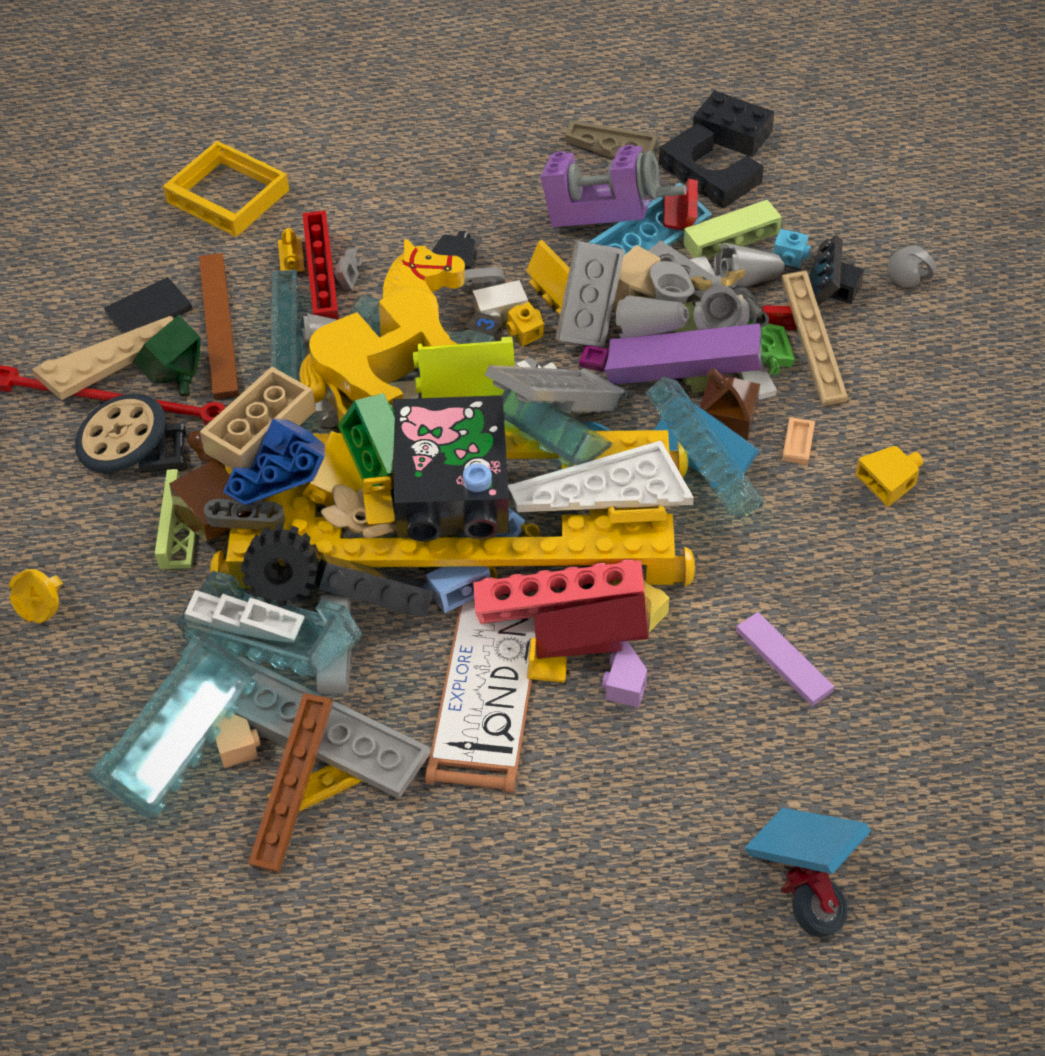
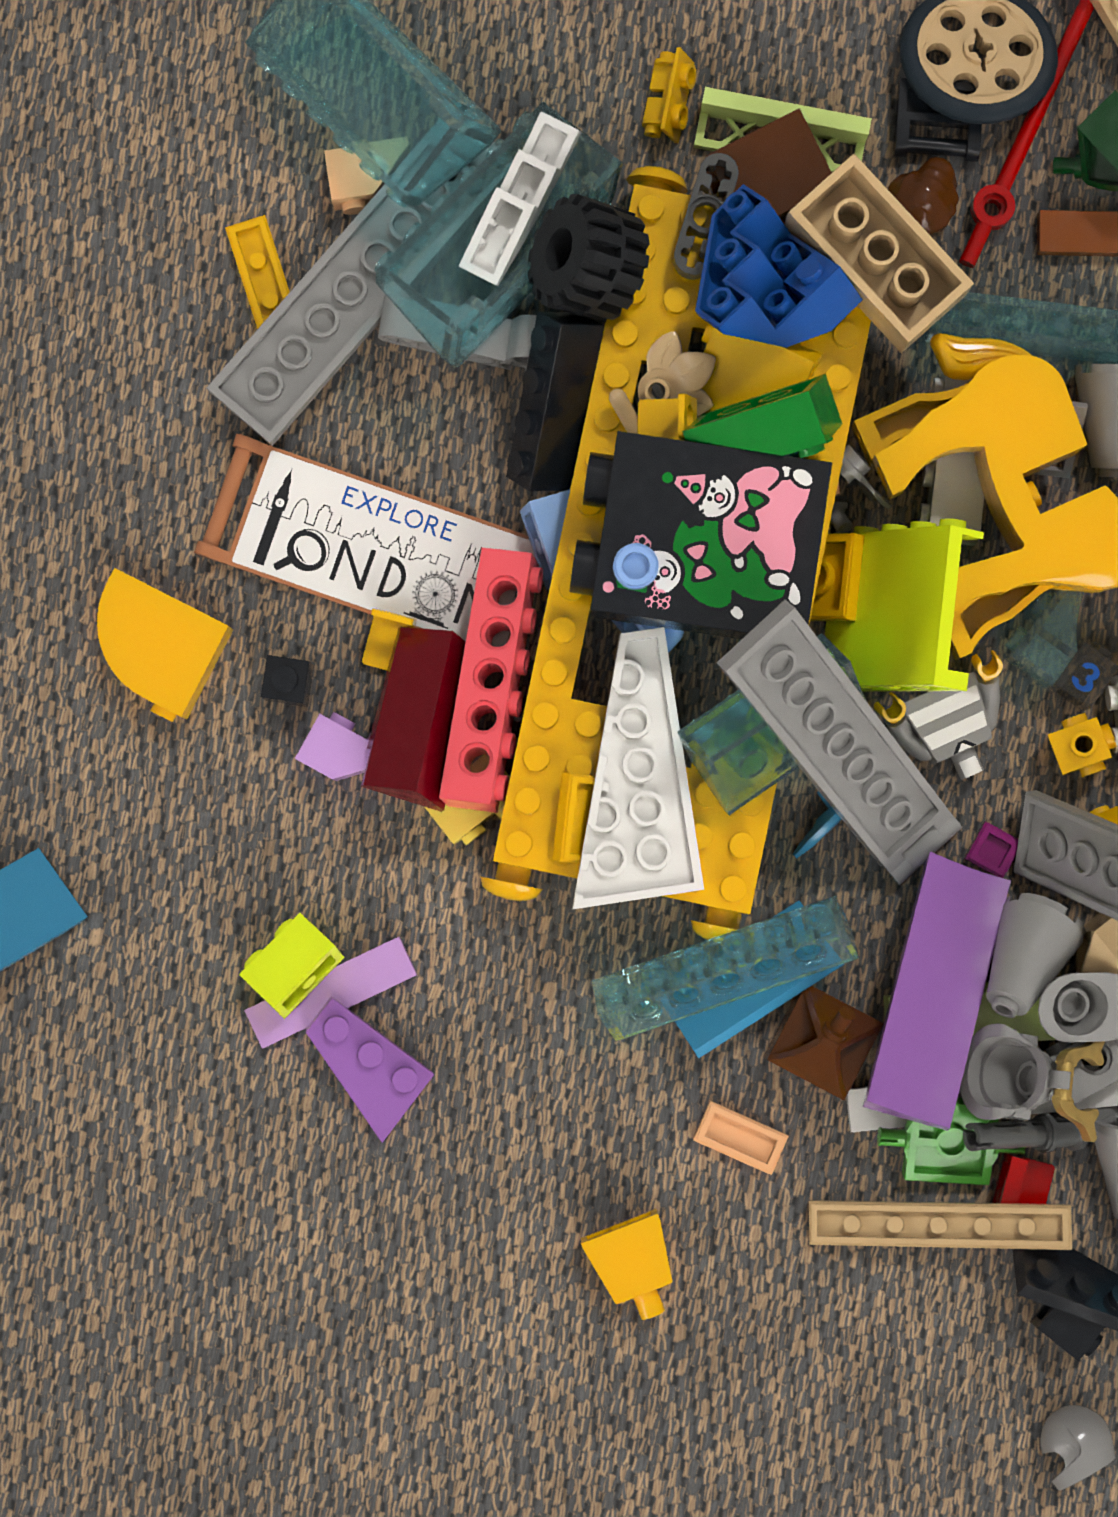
camera: 100 degrees right, 35 degrees up
(148, 579) = (674, 77): none -> yellow hinge
(290, 783) = (256, 244): dark orange plate -> none
(582, 797) = (158, 644): none -> yellow brick
(588, 713) = (287, 680): none -> black brick
(775, 673) = (291, 964): none -> neon yellow brick
(823, 626) = (369, 1066): none -> medium lavender wing

